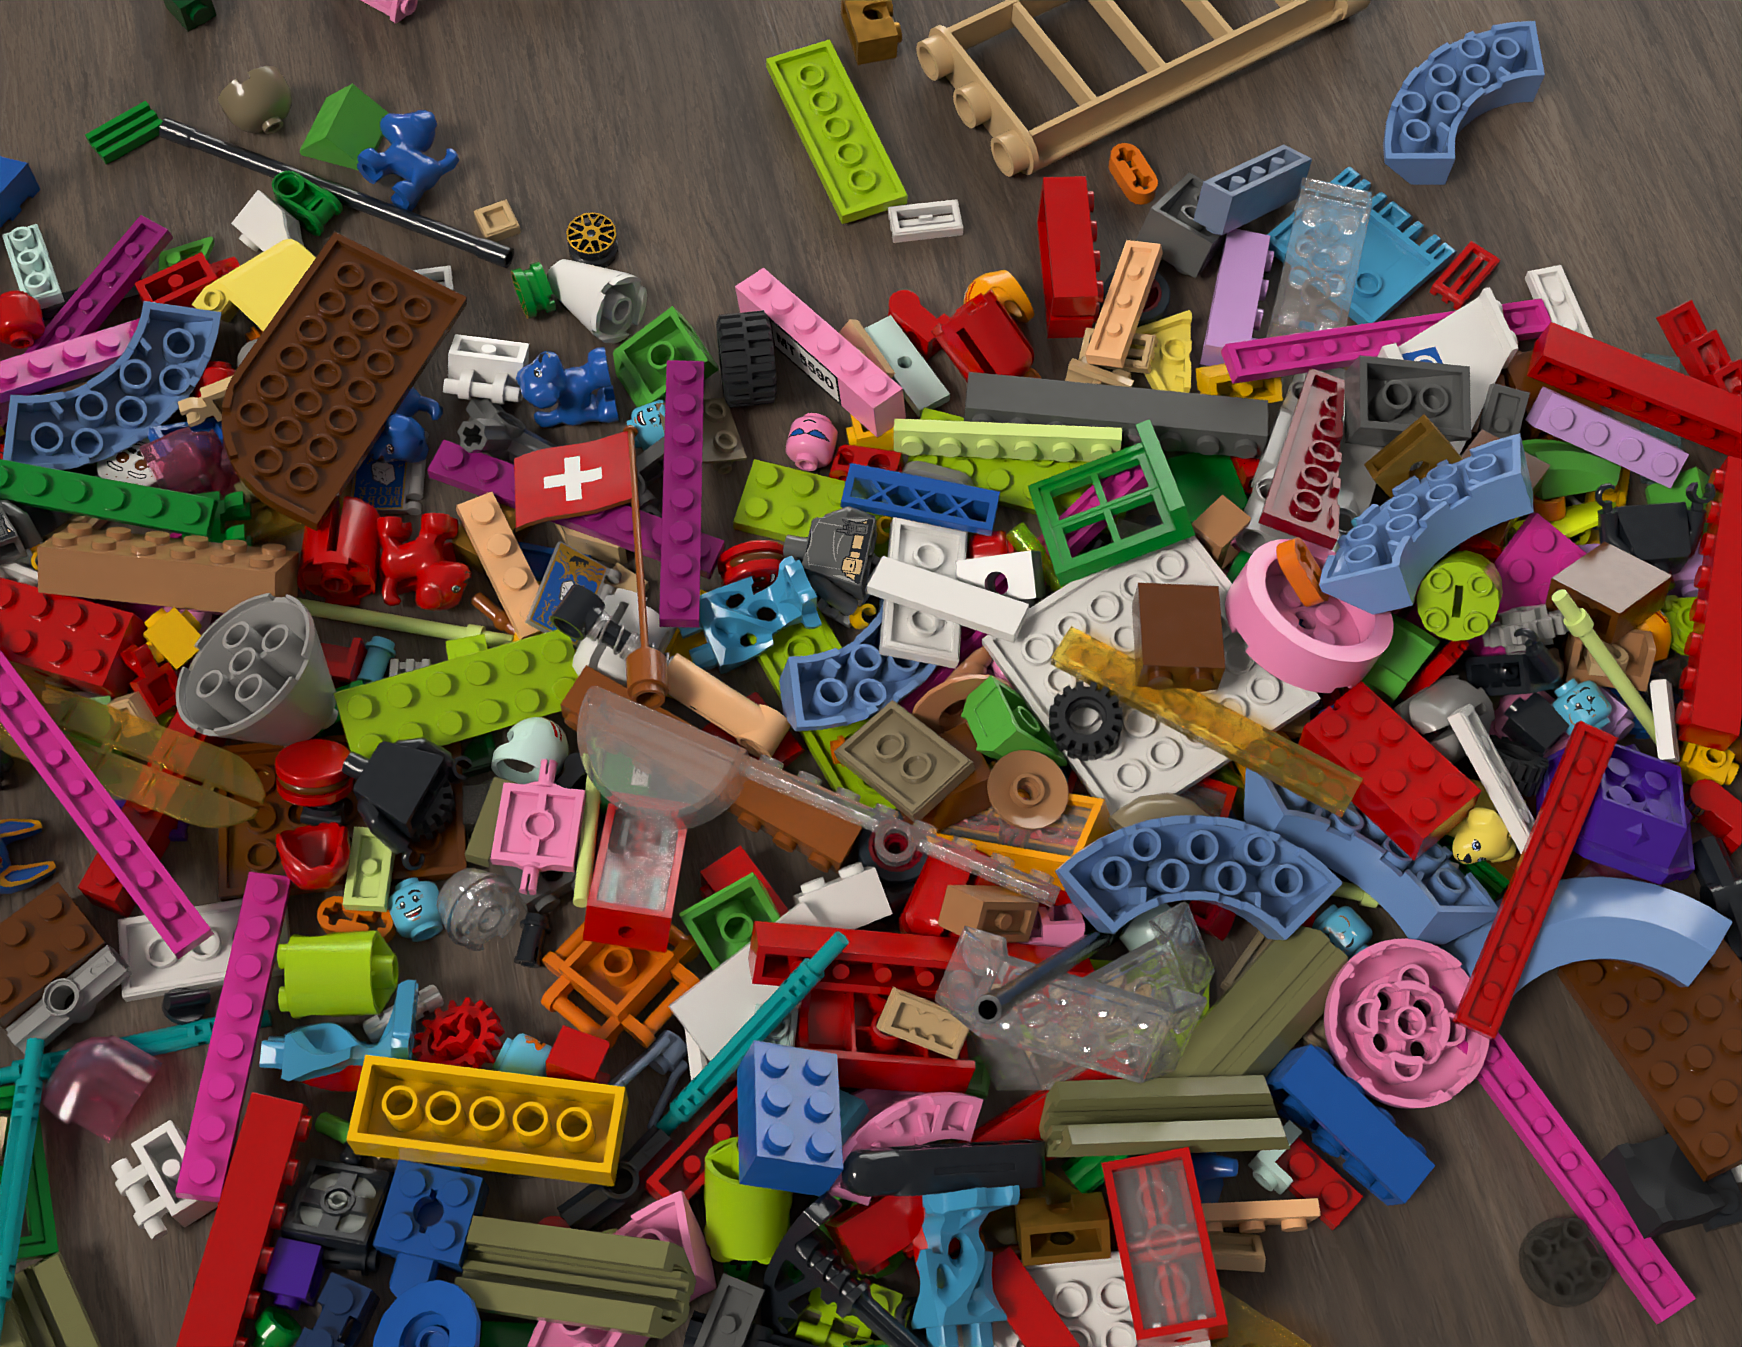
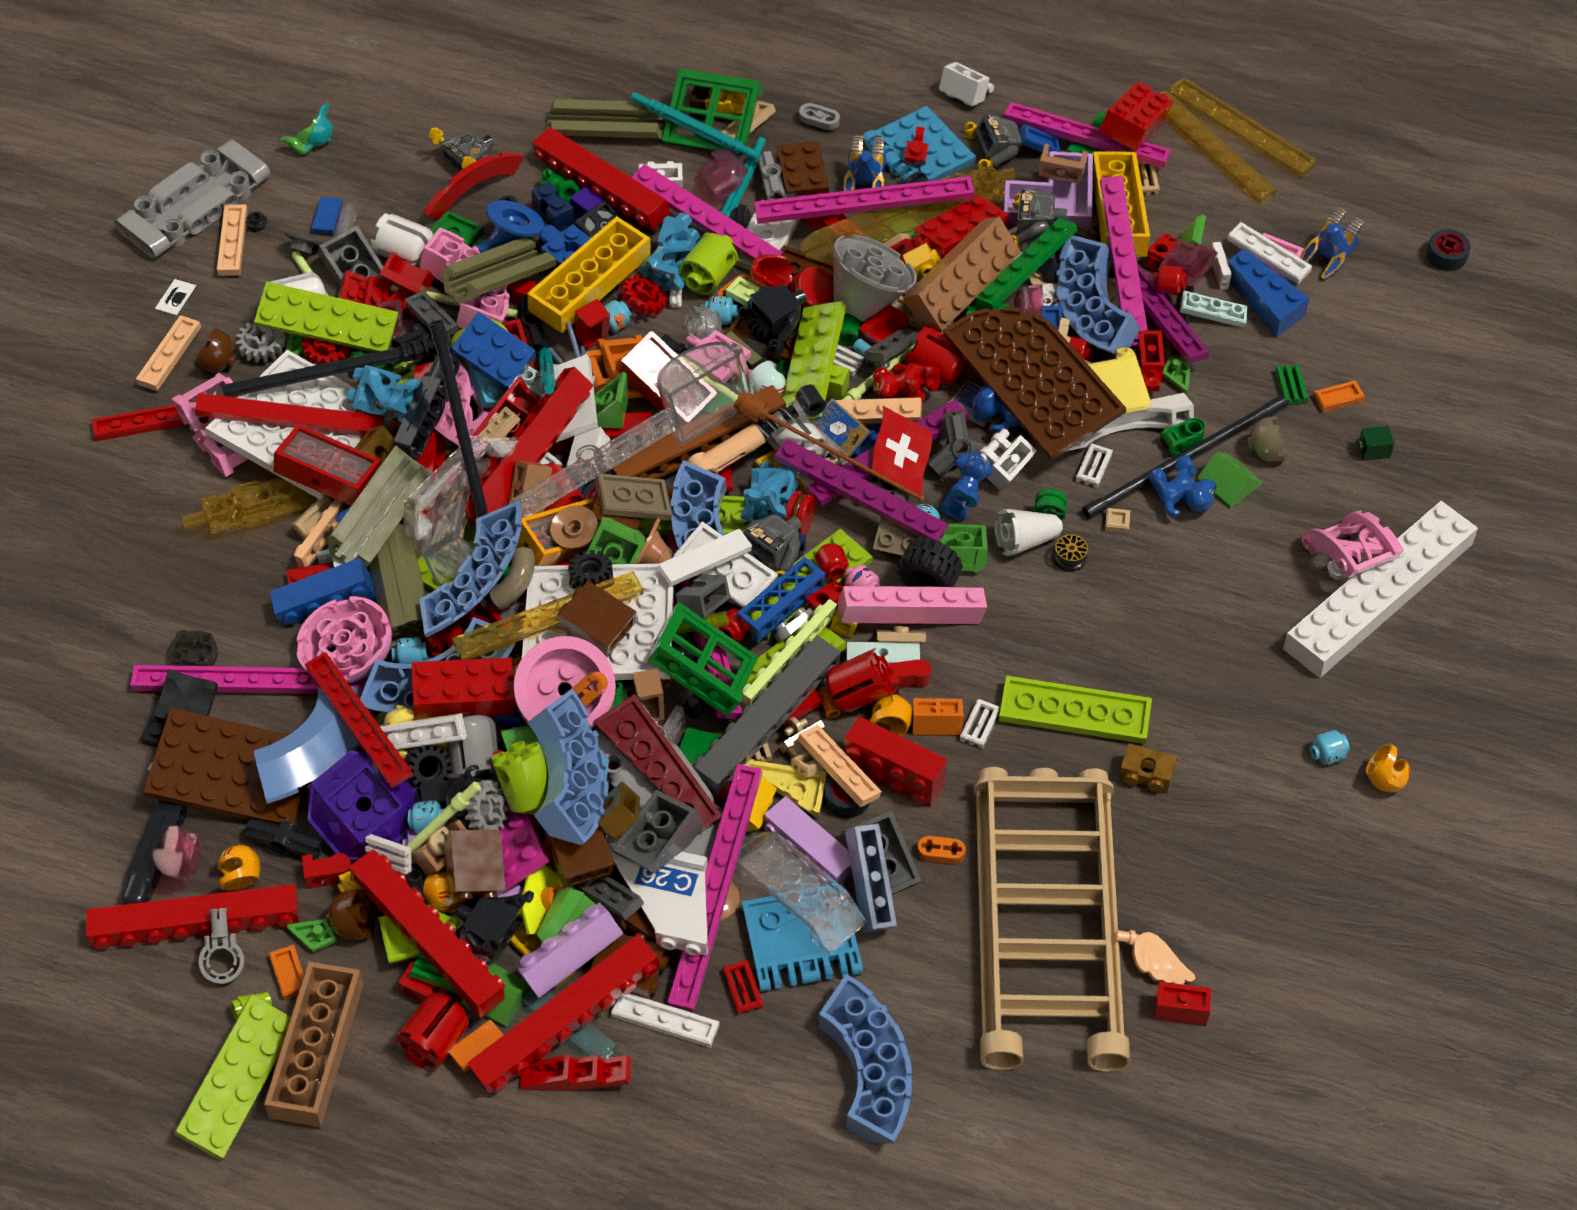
camera: 125 degrees right, 10 degrees down
(117, 76) = (1339, 396): none -> orange tile
(360, 617) = (890, 346): none -> dark grey hinge
(815, 478) = (832, 561): none -> red head
(954, 253) = (937, 716): none -> orange hinge

